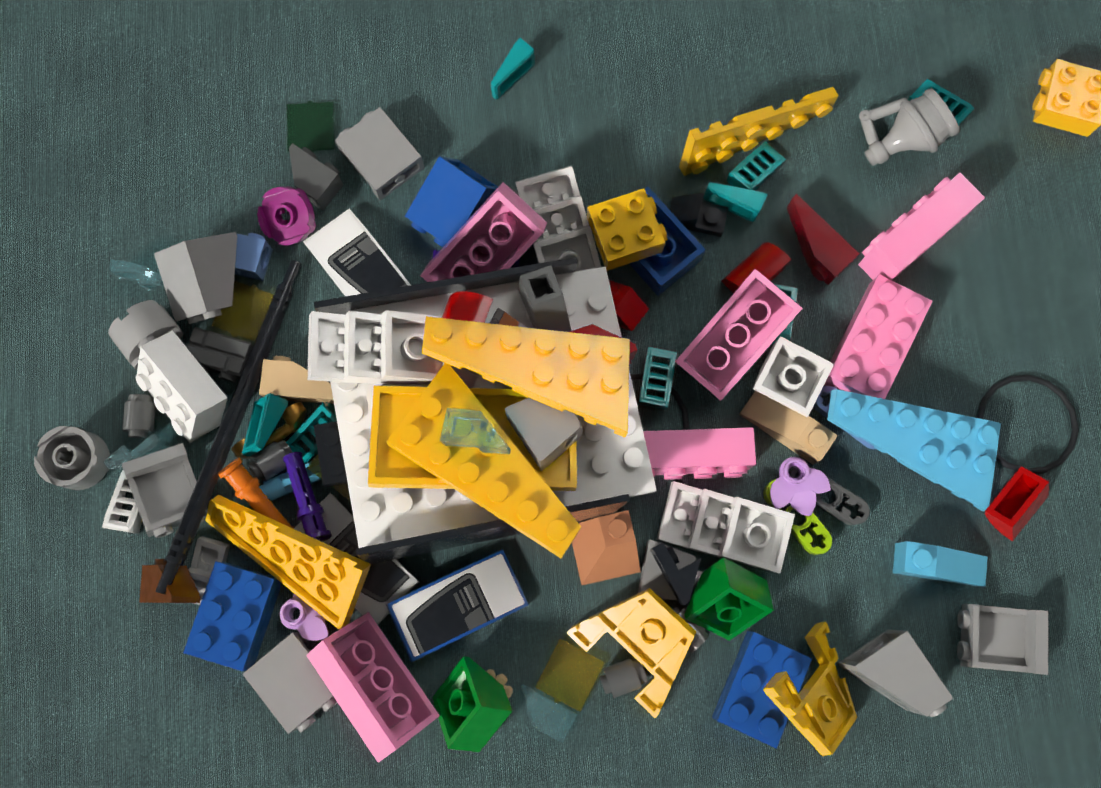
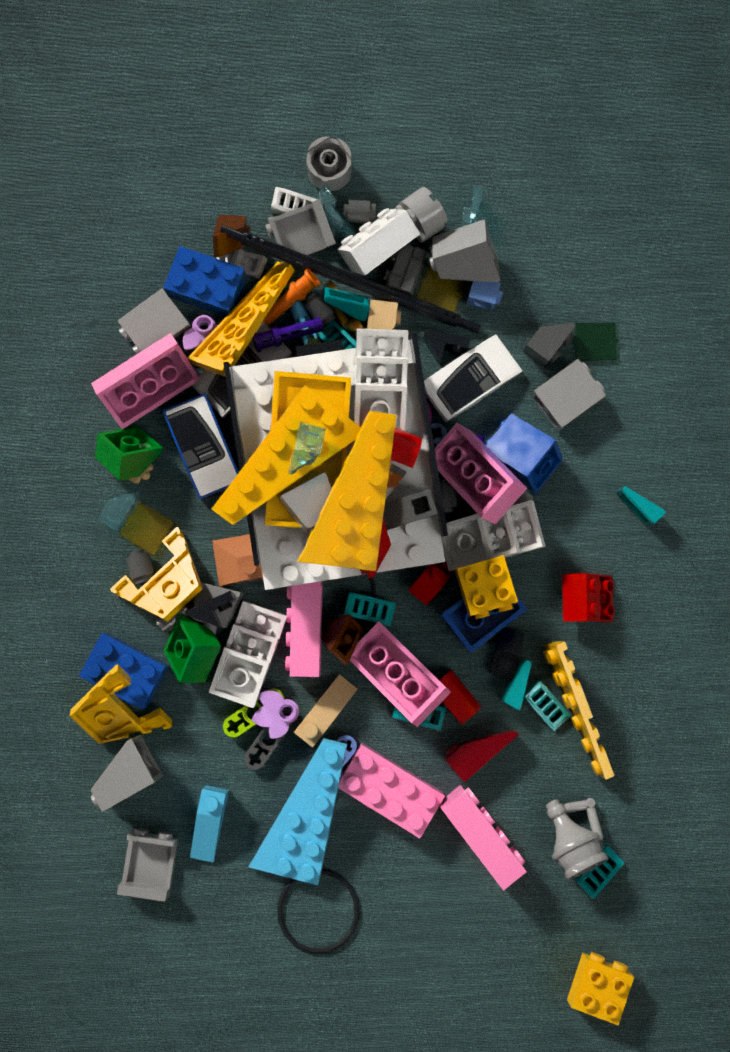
camera: 90 degrees right, 5 degrees up
(300, 210) = (518, 331): magenta plate -> none
(316, 289) = (439, 341): none -> black slope
(626, 124) = (587, 597): none -> red slope
(698, 405) = (342, 637): none -> reddish brown slope
(793, 376) = (362, 715): white slope -> none
(1017, 502) = (253, 891): red brick -> none

